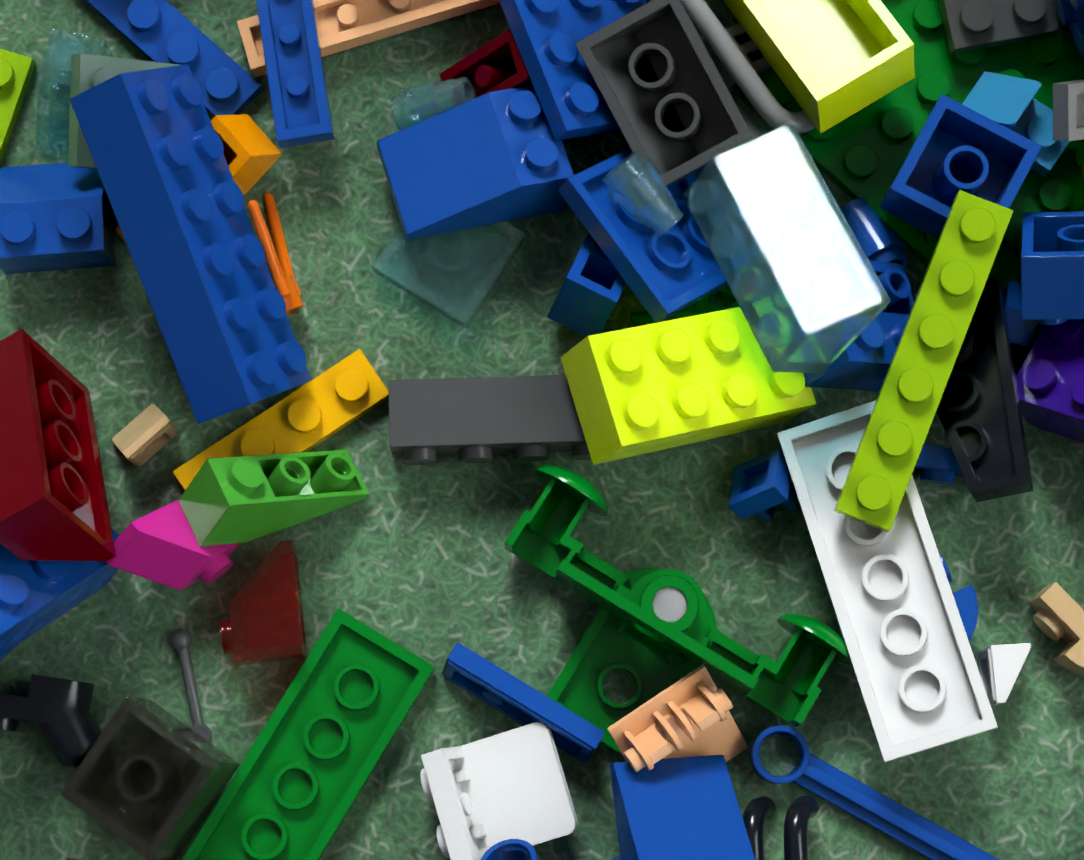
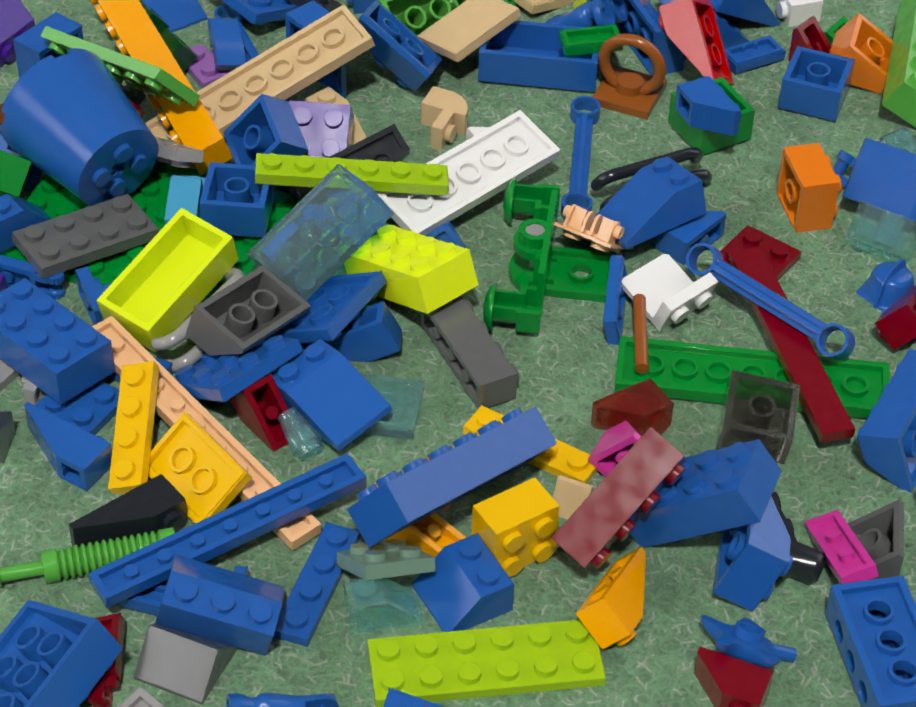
camera: 110 degrees left, 35 degrees down
(92, 308) = (518, 525): none -> yellow brick
(181, 641) = (699, 438): dark grey hinge -> none
(263, 494) = (579, 420): bright green slope -> none
(416, 695) = (640, 333): none -> dark orange bar
(642, 192) = (316, 301): clear light blue cone -> none

